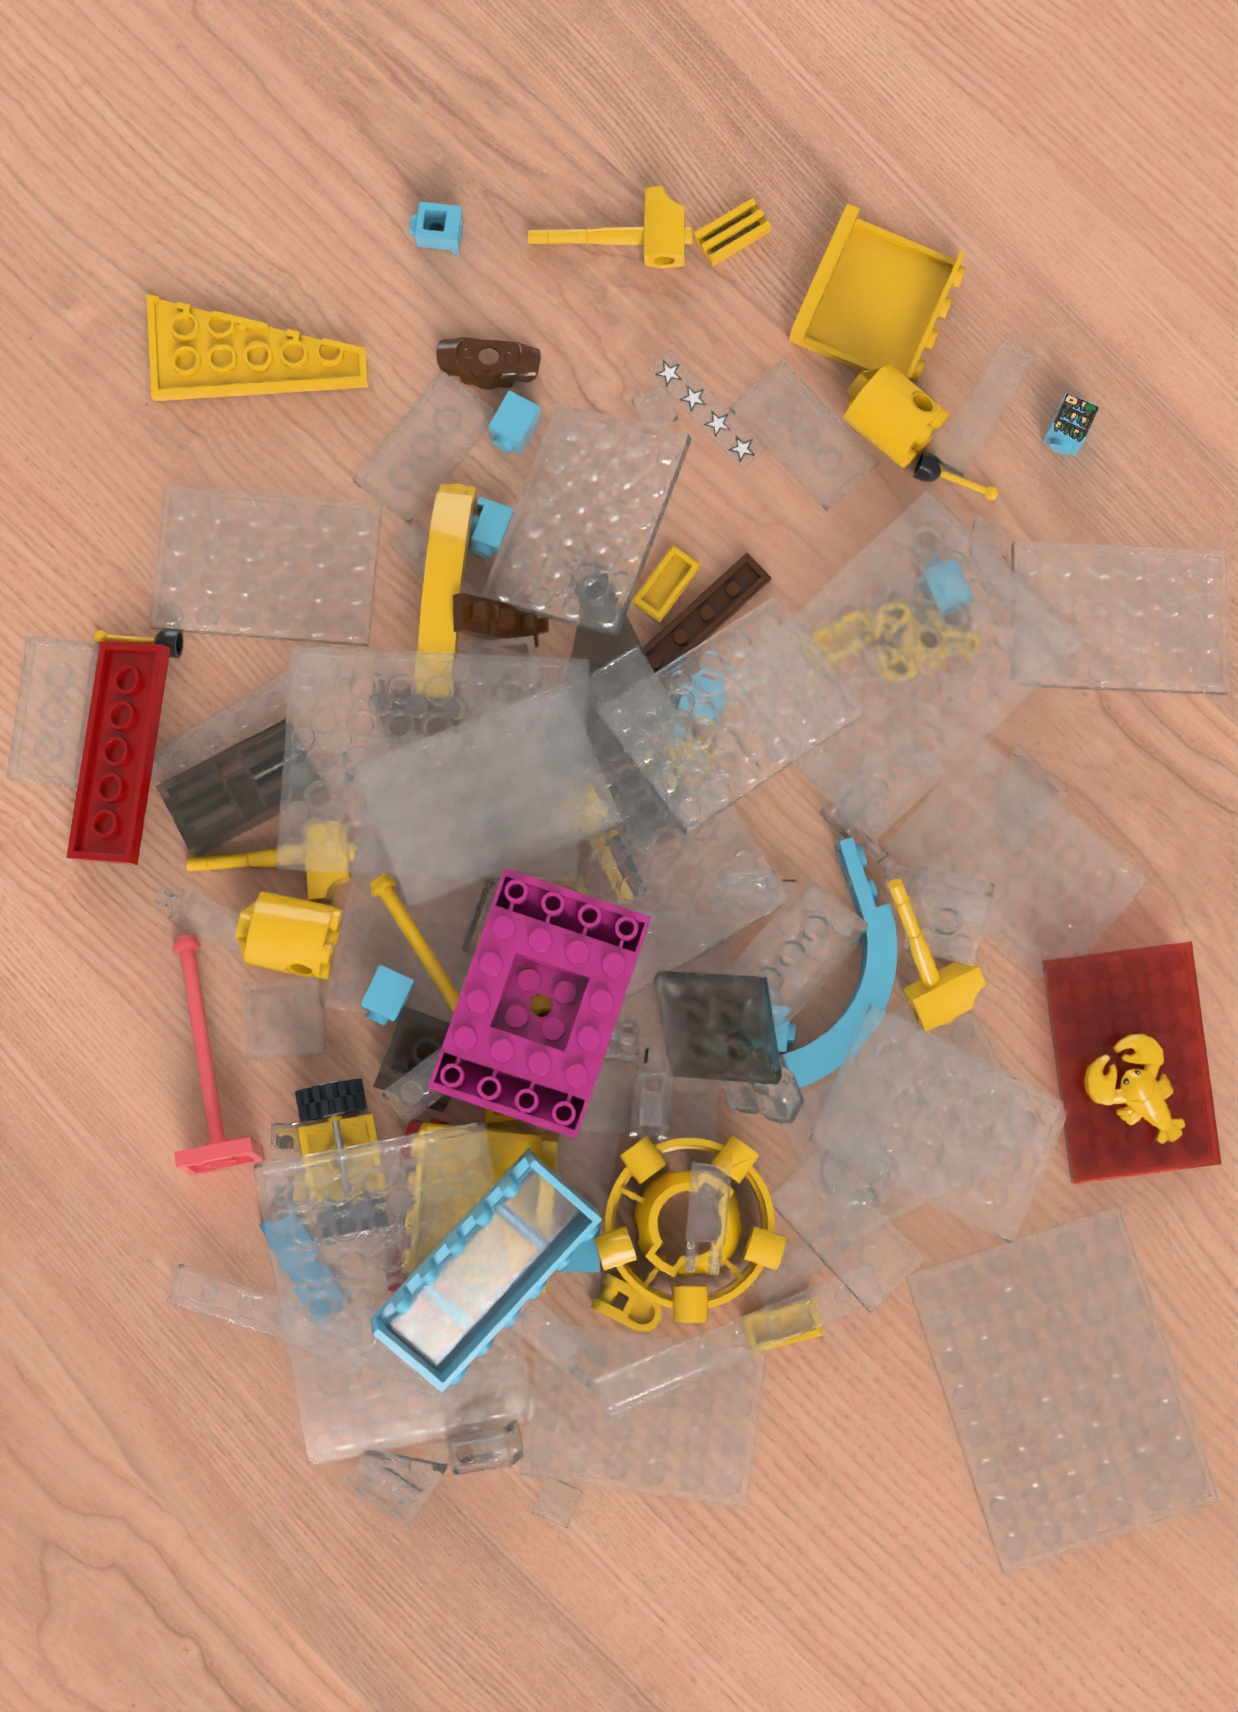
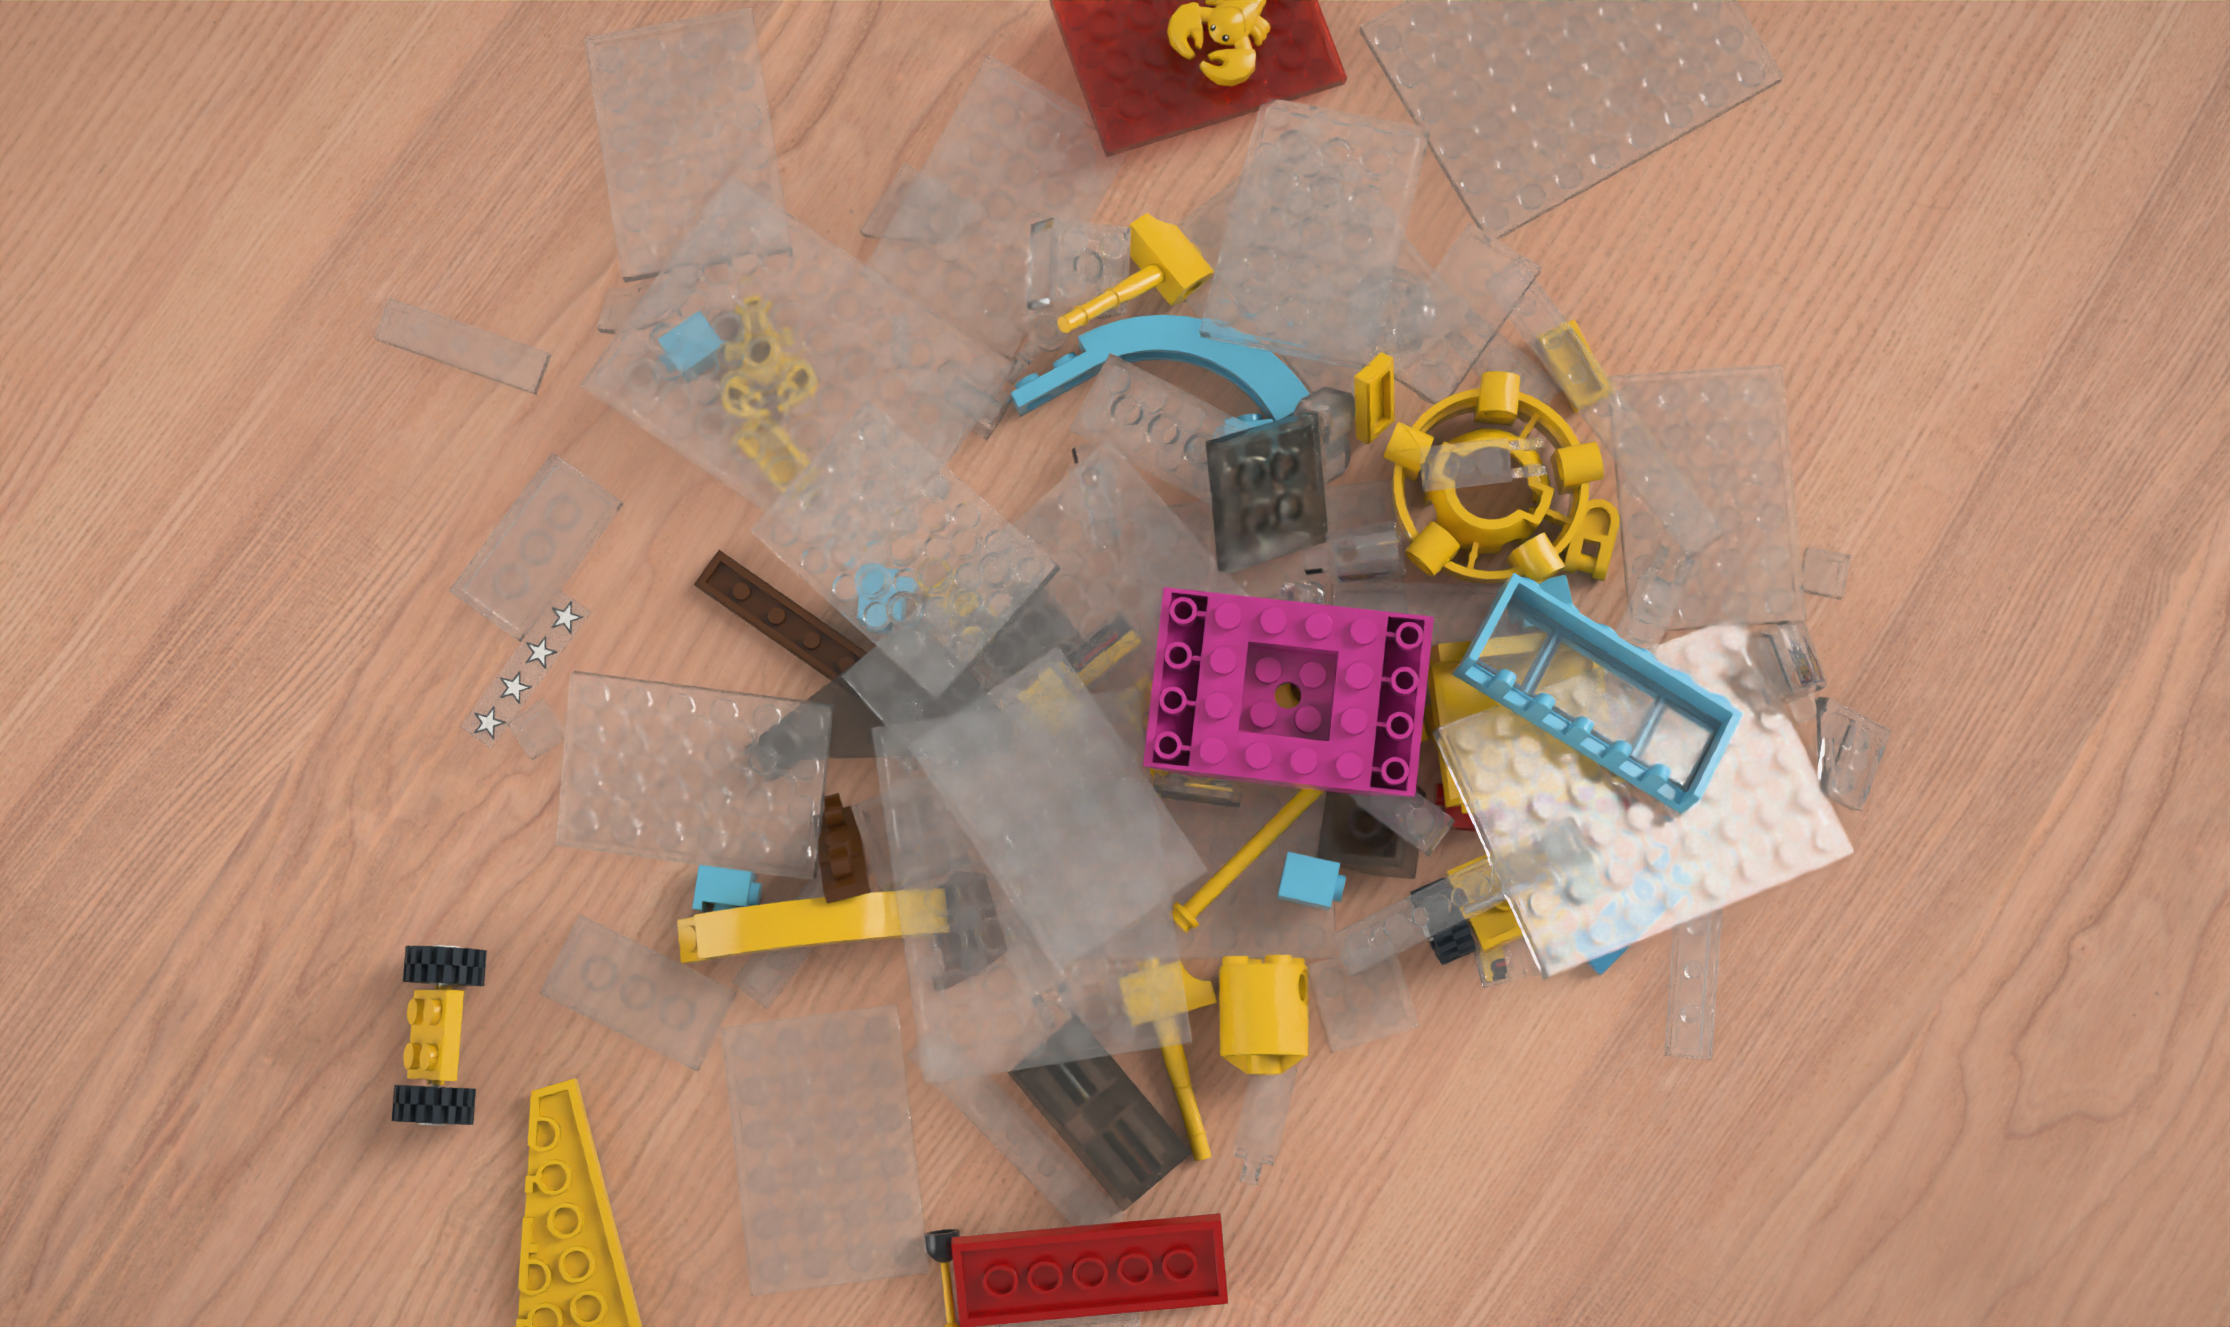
camera: 90 degrees left, 0 degrees up
(219, 1151) = (1527, 1036): coral tile -> none
(338, 1113) = (1461, 896): none -> clear plate
(373, 273) = (436, 1034): none -> plate
(440, 216) = (346, 1029): medium azure brick -> none
(514, 423) = (590, 890): medium azure brick -> none
(515, 362) = (518, 973): reddish brown piece -> none
(662, 234) = (320, 763): yellow piece -> none
(666, 583) = (748, 668): yellow tile -> none
(757, 216) = (273, 656): yellow tile -> none
(785, 1141) = (1374, 398): none -> yellow tile
(876, 298) = (354, 493): yellow panel -> none
(893, 413) = (495, 444): yellow cylinder -> none
(930, 468) = (550, 393): hinge -> none
(1070, 425) = (466, 241): brick -> none

